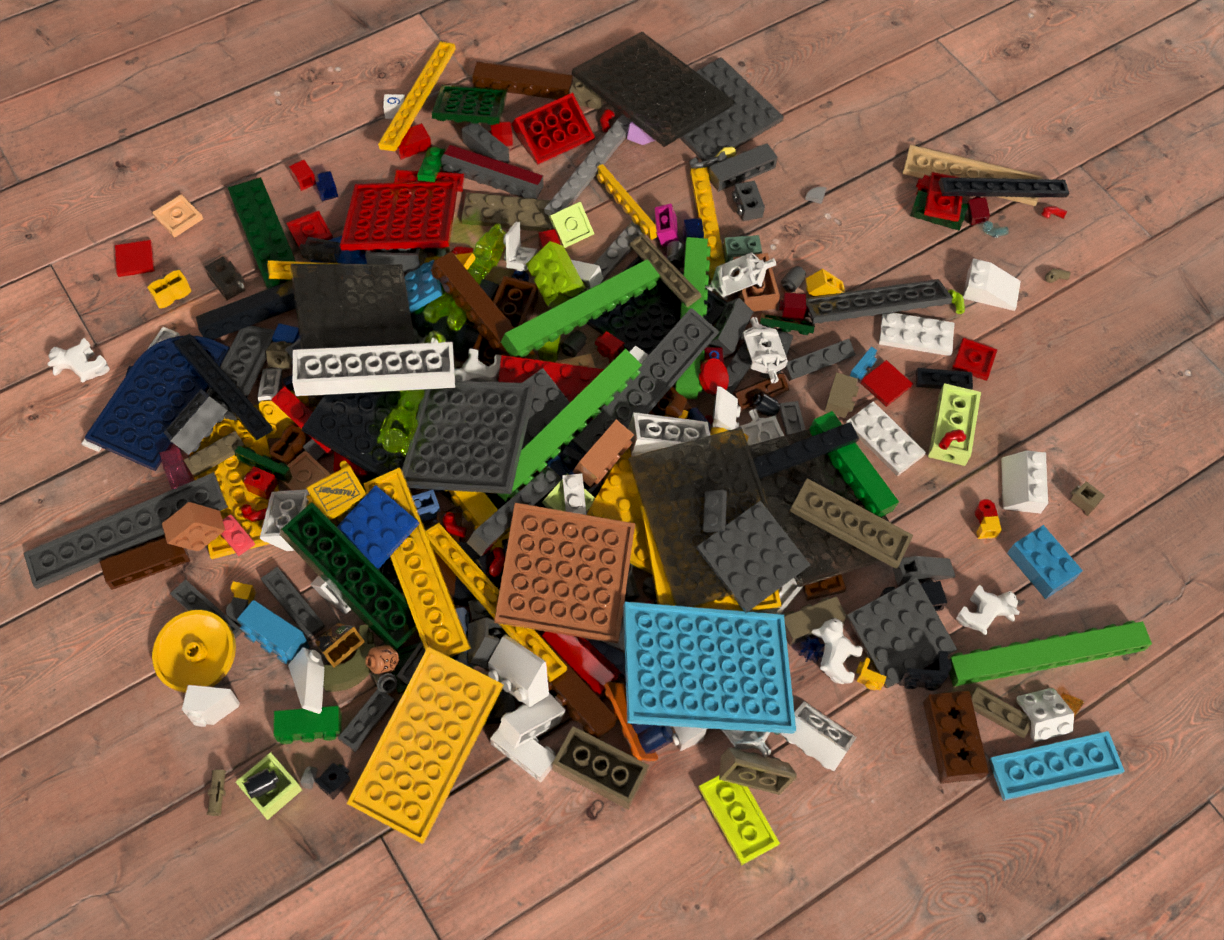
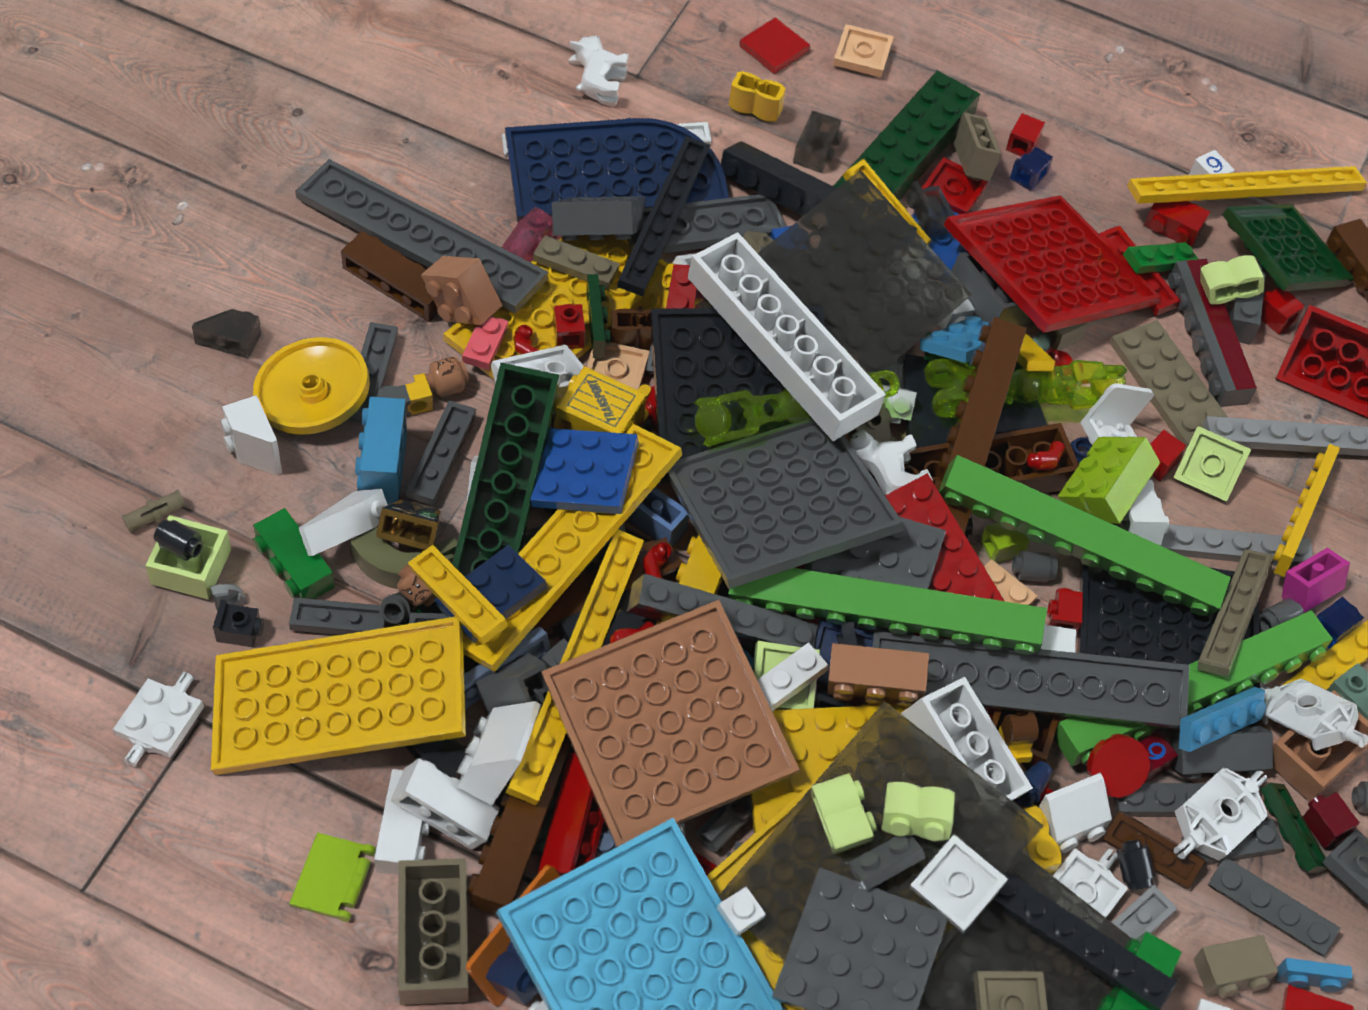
camera: 55 degrees right, 5 degrees down
(114, 681) = (229, 332): none -> clear smoke slope
(243, 569) = (447, 376): none -> nougat head
(296, 202) = (976, 147): none -> dark tan brick
(366, 859) = (158, 718): none -> white plate
(415, 639) = (458, 594): none -> yellow plate
(421, 621) = (505, 582): none -> dark blue plate
(475, 141) = (1232, 279): none -> yellowish green brick
(523, 296) = (1046, 459): none -> red arm
(529, 808) = (332, 876): none -> lime piece
(677, 516) = (842, 813): none -> yellowish green brick
(695, 599) = (741, 911): none -> white plate
(701, 479) = (918, 811): none -> yellowish green brick
(721, 315) = (1221, 719): none -> dark azure plate
(747, 485) = (958, 883): none -> white plate

